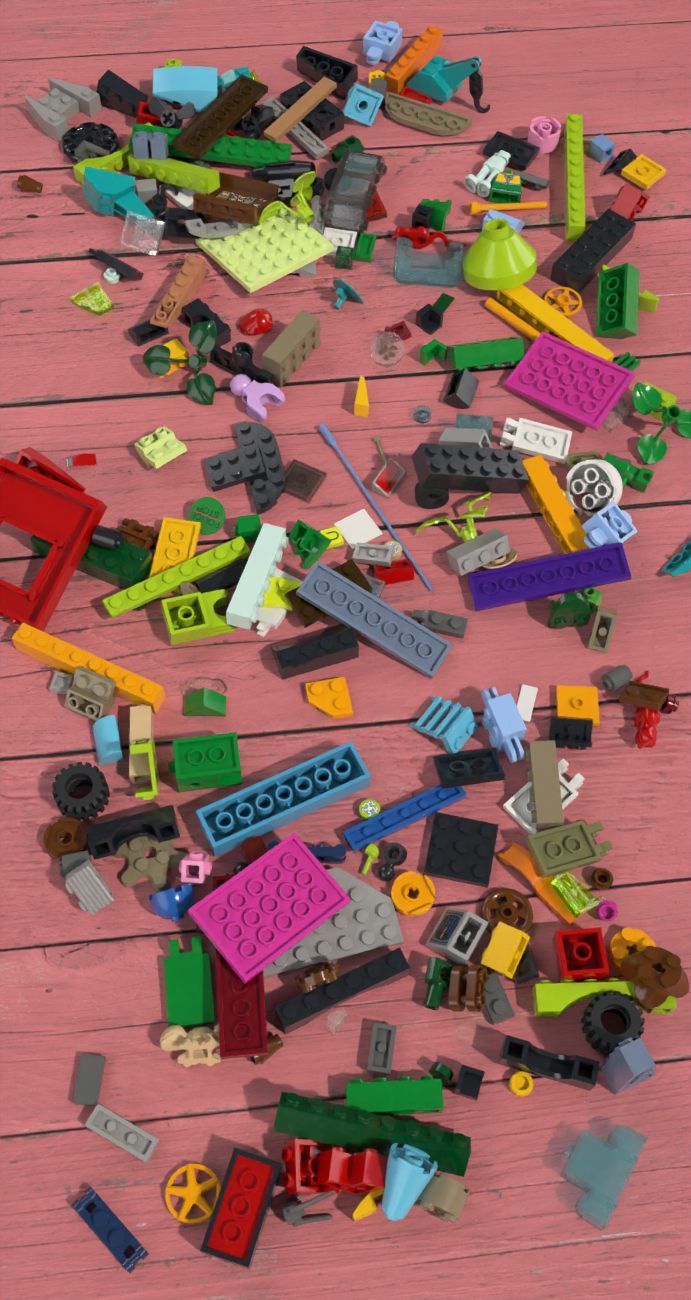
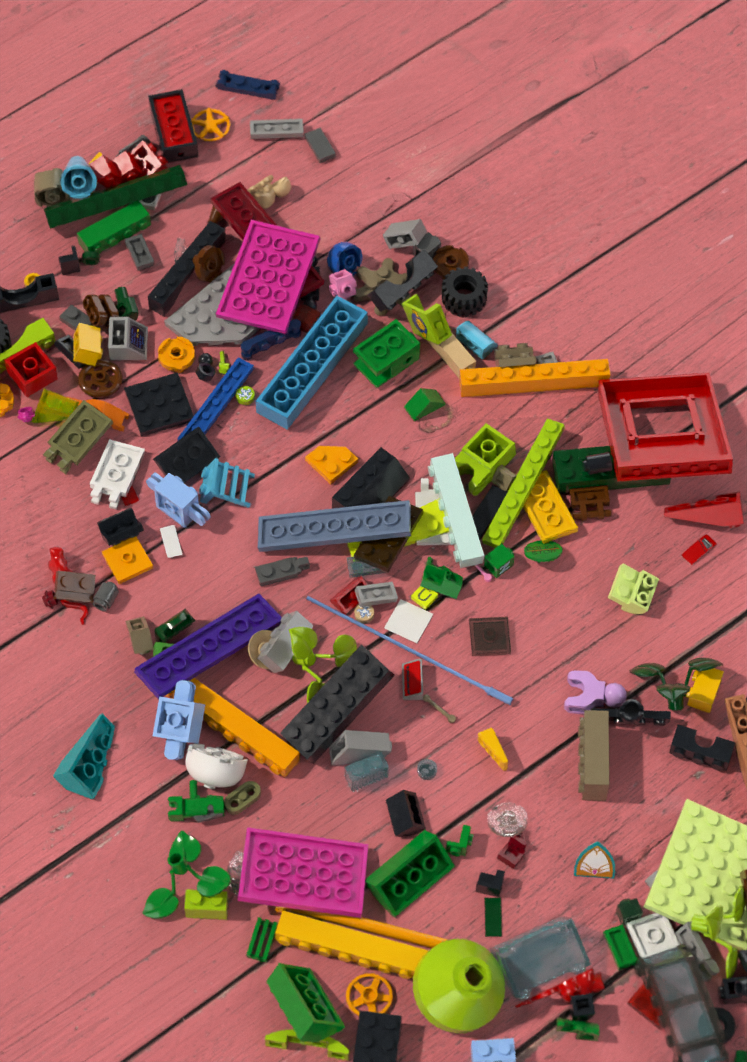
camera: 150 degrees right, 0 degrees up
(189, 985) = (292, 215): green tile -> none
(255, 461) = (542, 624): black plate -> none
(256, 322) = (657, 782): red hat -> none
(536, 439) = (299, 799): white tile -> none
(545, 785) = (118, 468): dark tan brick -> none
(606, 874) = (38, 433): reddish brown plate -> none

